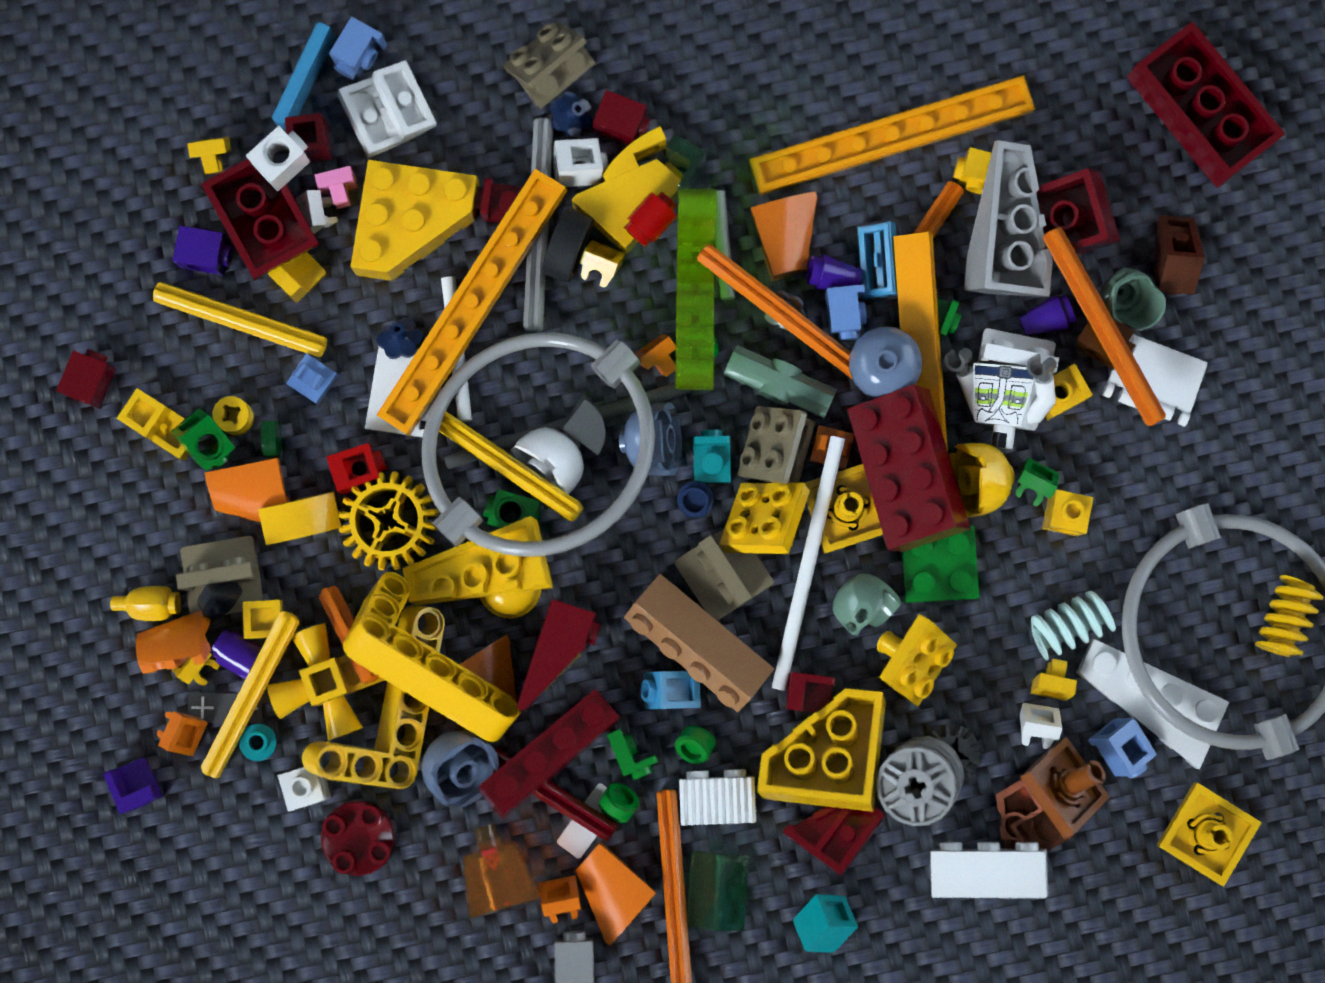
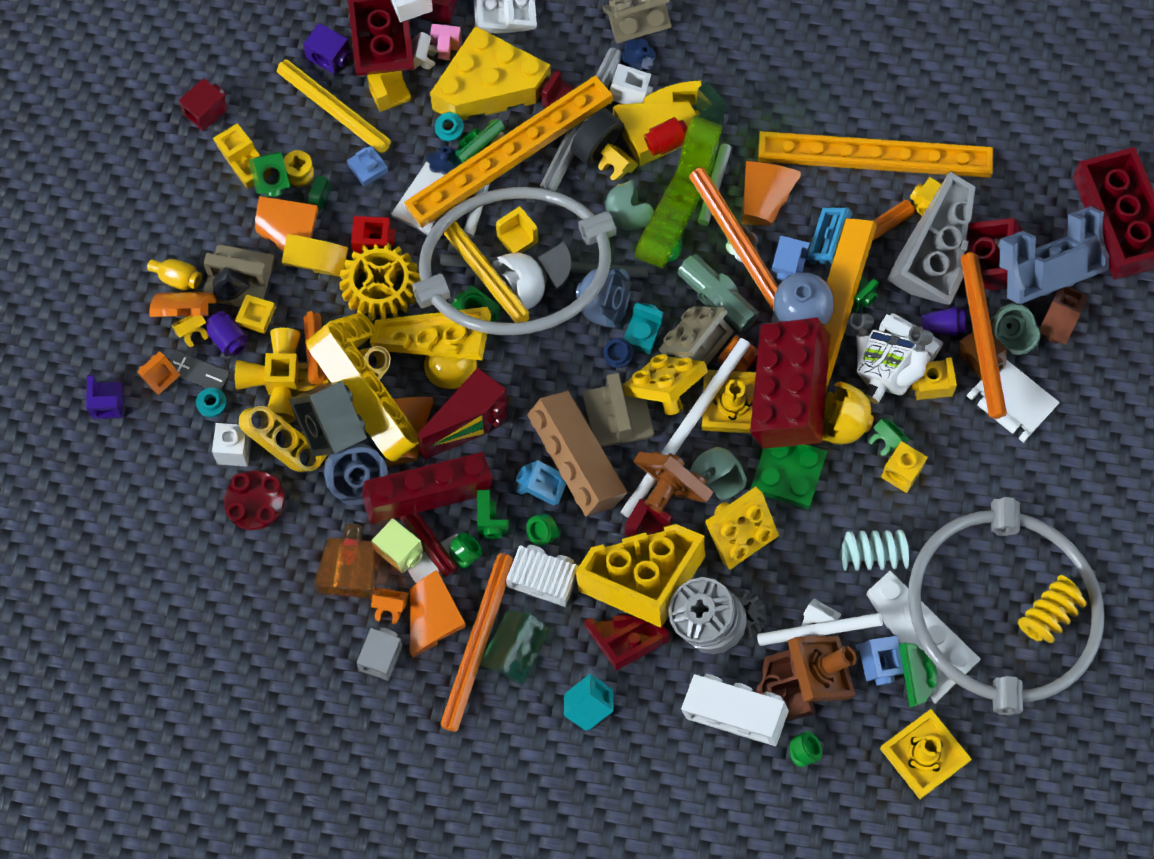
camera: 25 degrees right, 15 degrees down
(250, 694) = (221, 362): yellow axle -> none
(397, 288) = (455, 132): none -> teal plate
(409, 730) = (328, 418): none -> pearl dark grey brick
(427, 301) = (477, 139): none -> green tile
(521, 398) = (517, 231): none -> yellow panel
(543, 830) = (398, 546): none -> yellowish green brick
(621, 118) = (673, 66): dark red brick -> none
(629, 320) = (623, 207): none -> sand green helmet
(657, 354) = (630, 239): orange tile -> none
(821, 638) = (671, 479): none -> dark orange plate
(829, 272) = (788, 227): dark purple cone -> none
(1048, 744) = (821, 629): none -> white bar
(1054, 683) = (844, 590): yellow tile -> none
(1078, 880) = (805, 749): none -> green tile
(1140, 217) = (1057, 264): none -> sand blue bracket
(1172, 750) = (919, 673): none -> green tile

